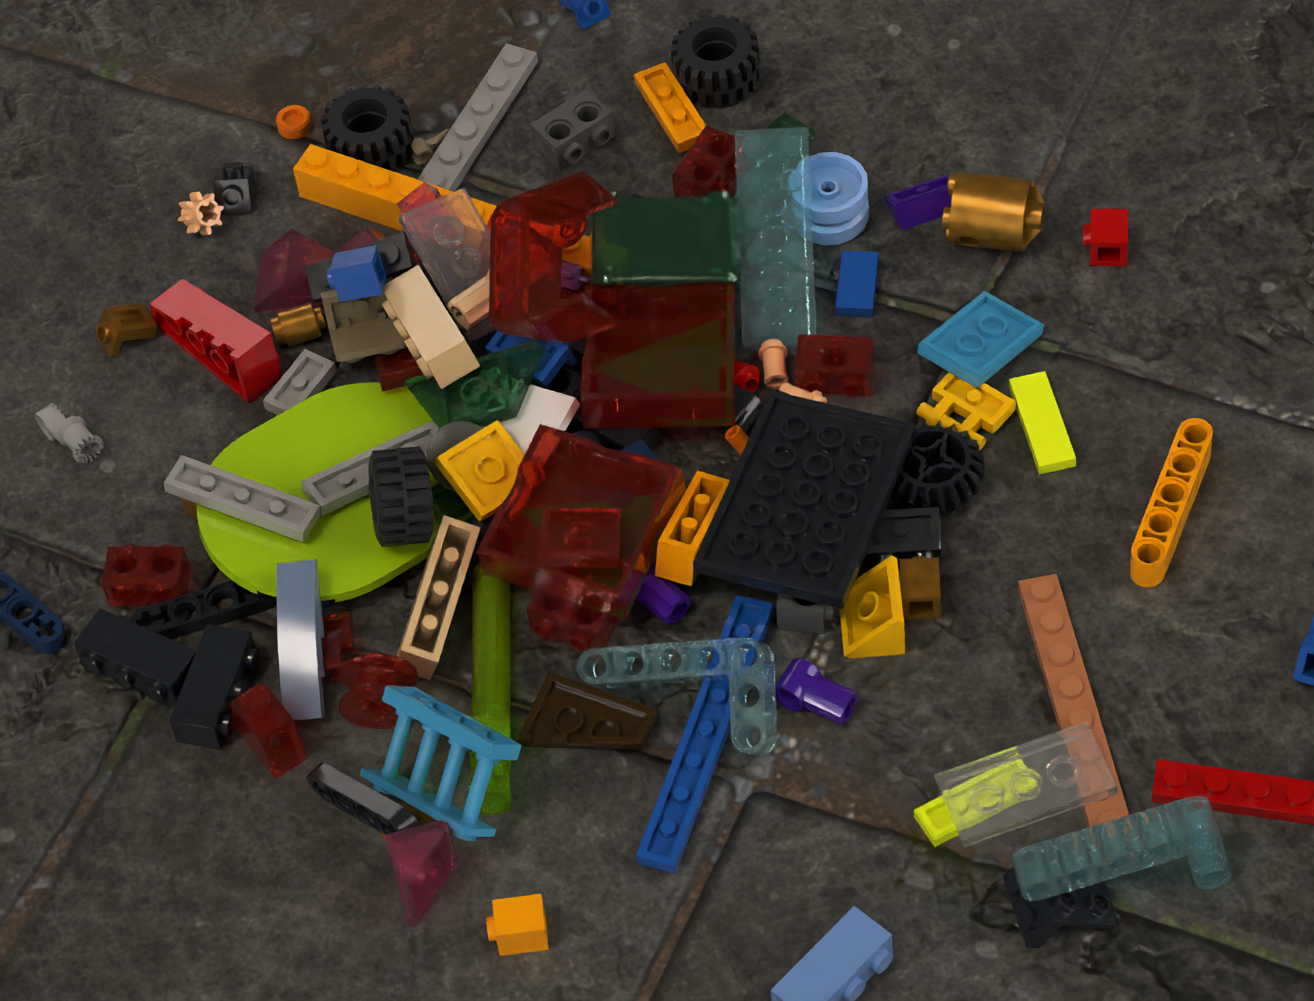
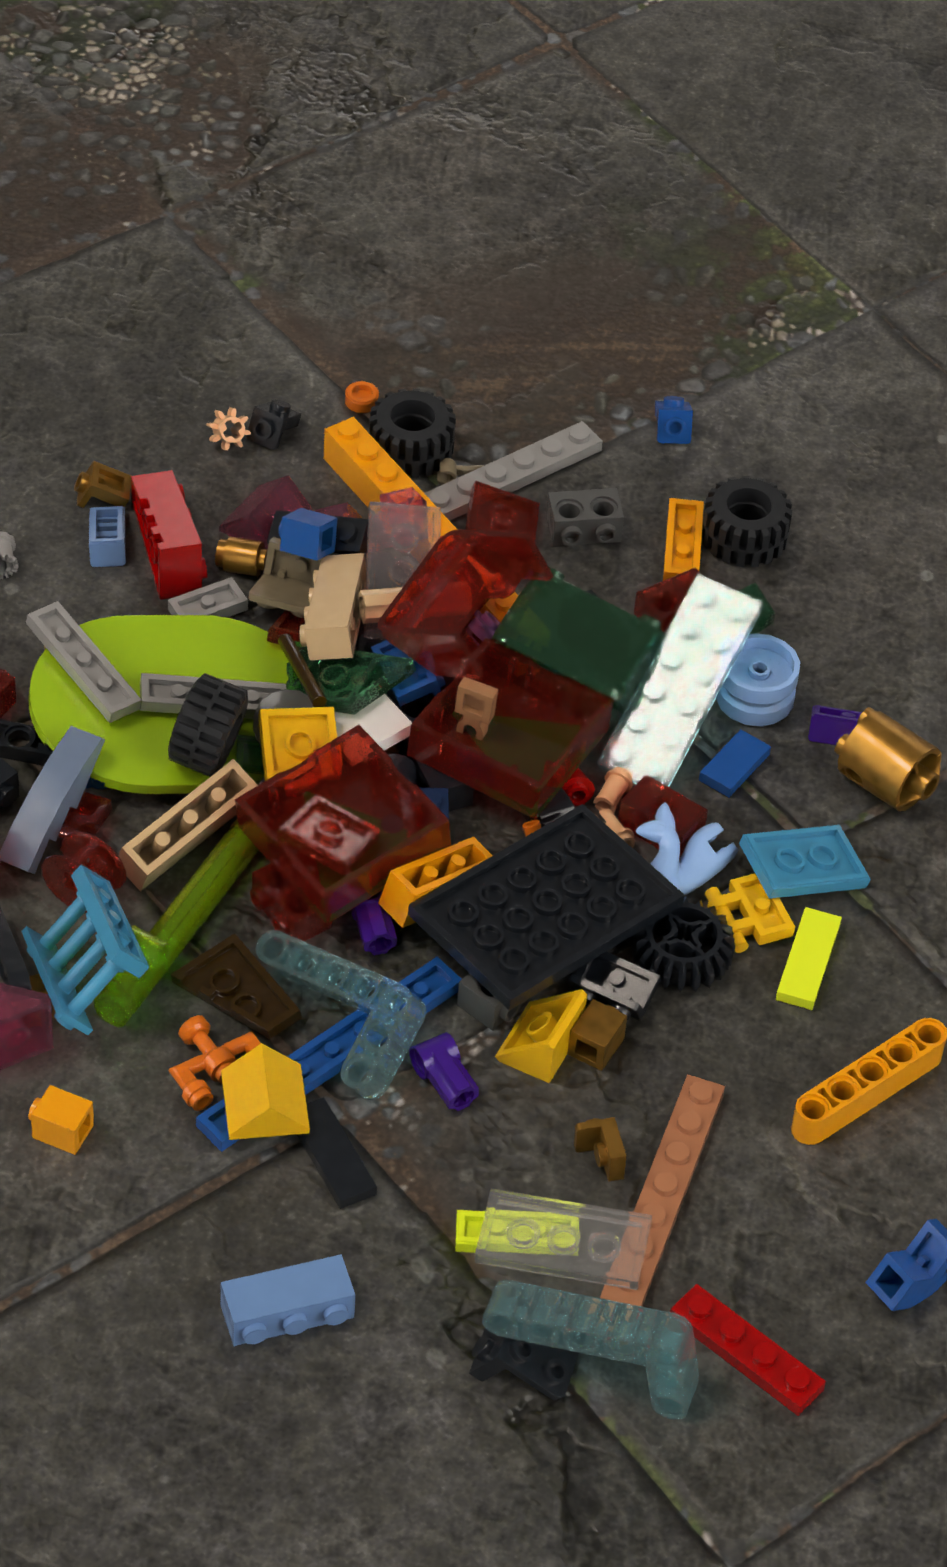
camera: 20 degrees right, 5 degrees down
(162, 372) = (107, 540): none -> medium blue slope
(442, 401) = (302, 670): none -> dark brown bar
(501, 169) = (501, 511): none -> clear red tile
(614, 795) = (213, 1060): none -> orange piece
(622, 352) = (476, 704): none -> medium nougat plate
(683, 804) = (264, 1095): none -> yellow slope
(770, 820) = (336, 1156): none -> black tile
(888, 392) = (698, 860): none -> light blue piece
(1000, 680) = (605, 1140): none -> pearl gold bracket

